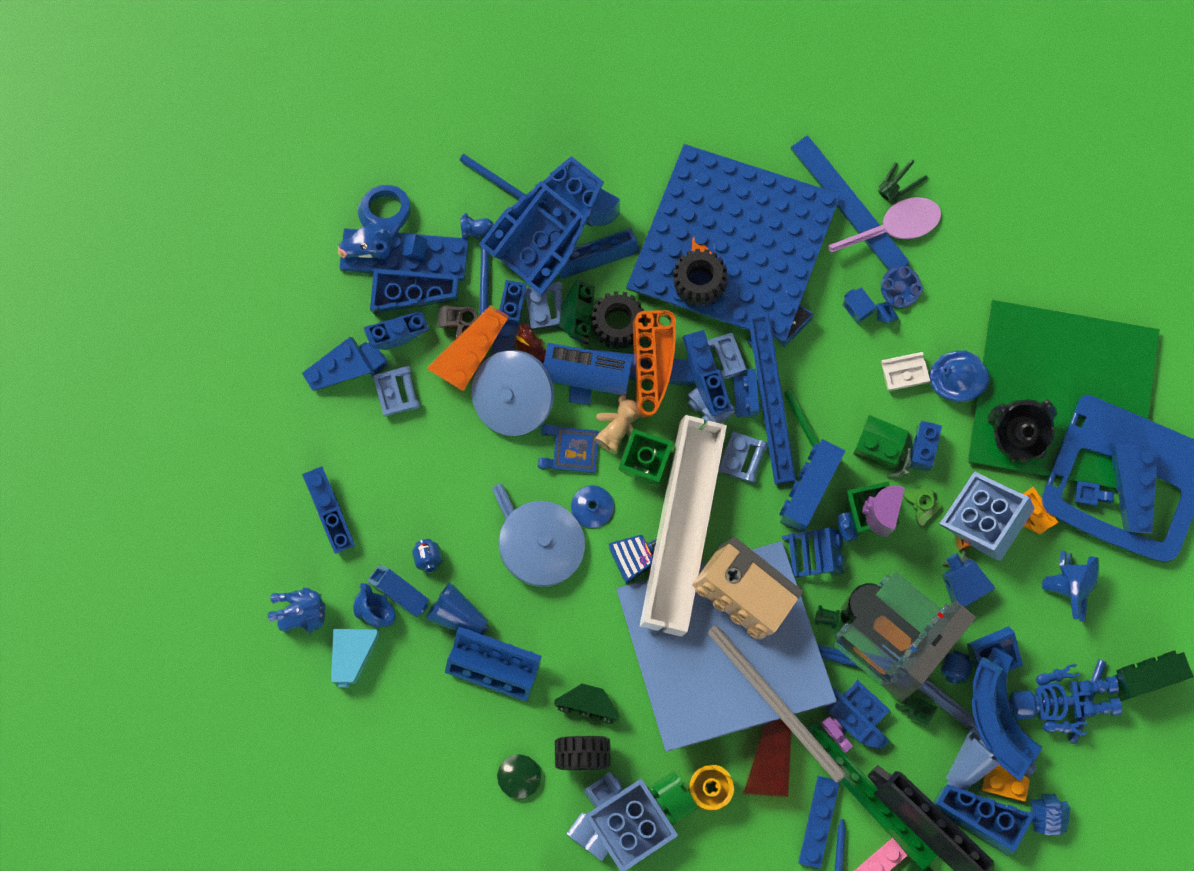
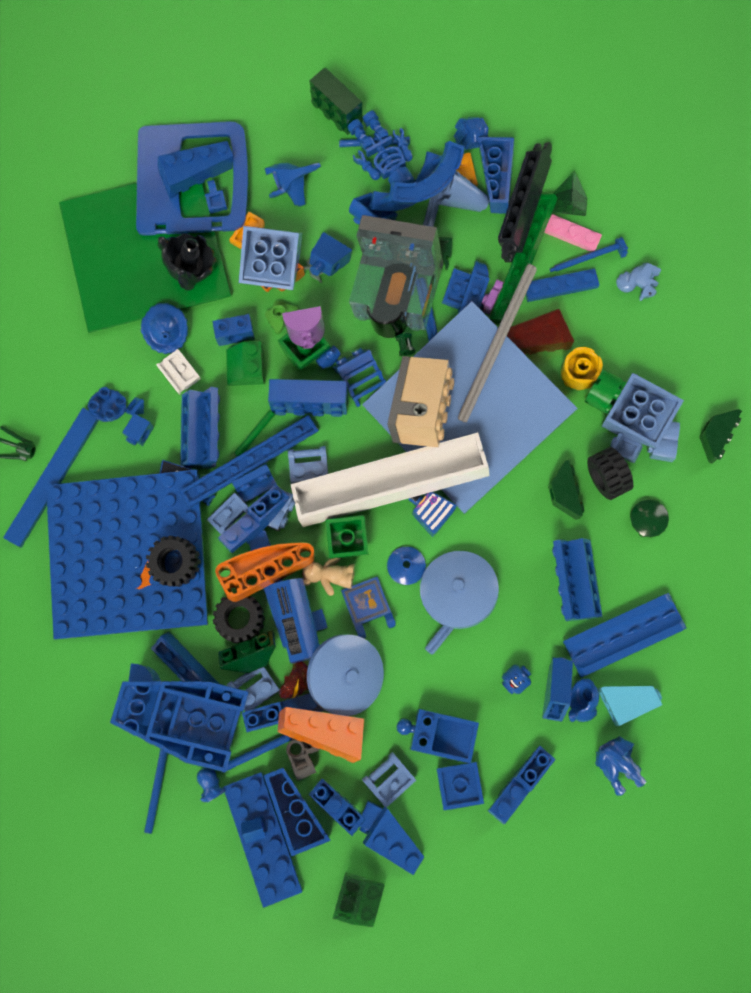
camera: 115 degrees left, 0 degrees up
(306, 312) = (358, 900): none -> clear green slope
(357, 453) = (460, 786): none -> blue plate
(377, 233) = (256, 873): blue animal -> none
(408, 459) = (445, 735): none -> blue slope
(415, 687) = (624, 635): none -> blue plate
(456, 611) = (551, 630): blue cone -> none
(830, 365) = (199, 429): none -> blue brick
(903, 466) = (258, 337): sand green piece -> none
(904, 220) = (48, 427): lavender piece -> none

